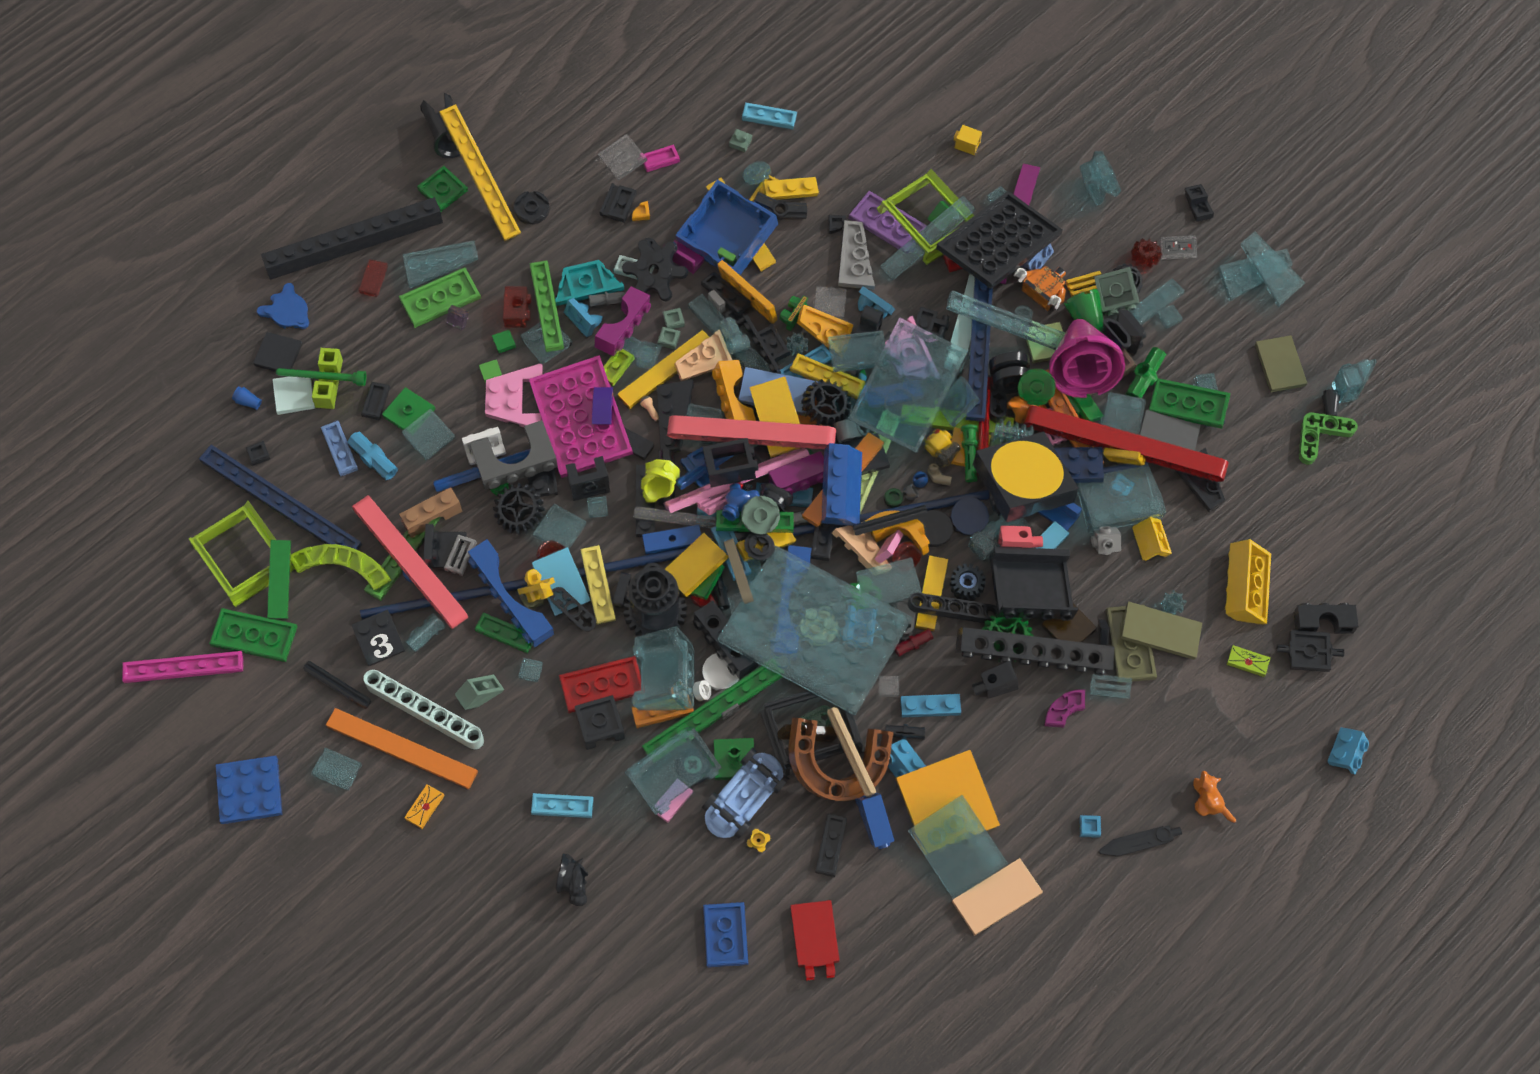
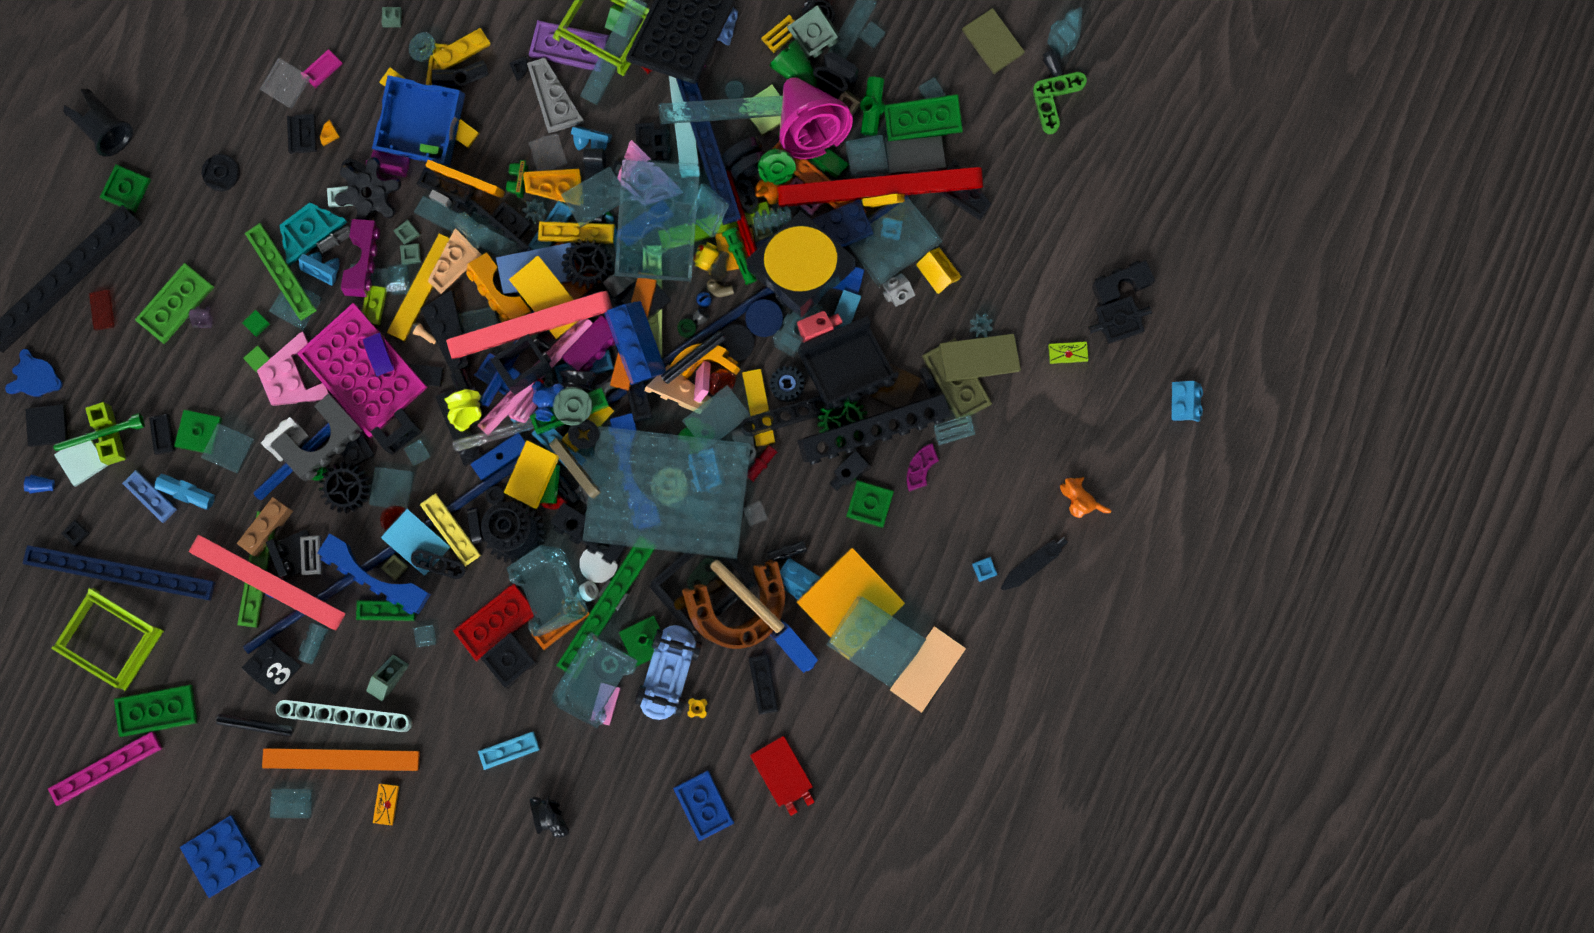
camera: 15 degrees left, 15 degrees up
(279, 578) = (154, 651): green tile -> none
(342, 556) = (204, 602): lime tile -> none
(434, 262) = (155, 268): clear light blue wing -> none
(479, 172) = (153, 161): yellow tile -> none
(514, 297) = (244, 276): clear red brick -> none
(536, 587) = (395, 559): yellow hips -> none
(930, 705) = (799, 516): dark azure plate -> none
(1002, 721) = (869, 504): none -> green tile
(1043, 286) = (743, 53): orange torso -> none
(1248, 582) = (1041, 277): yellow slope -> none

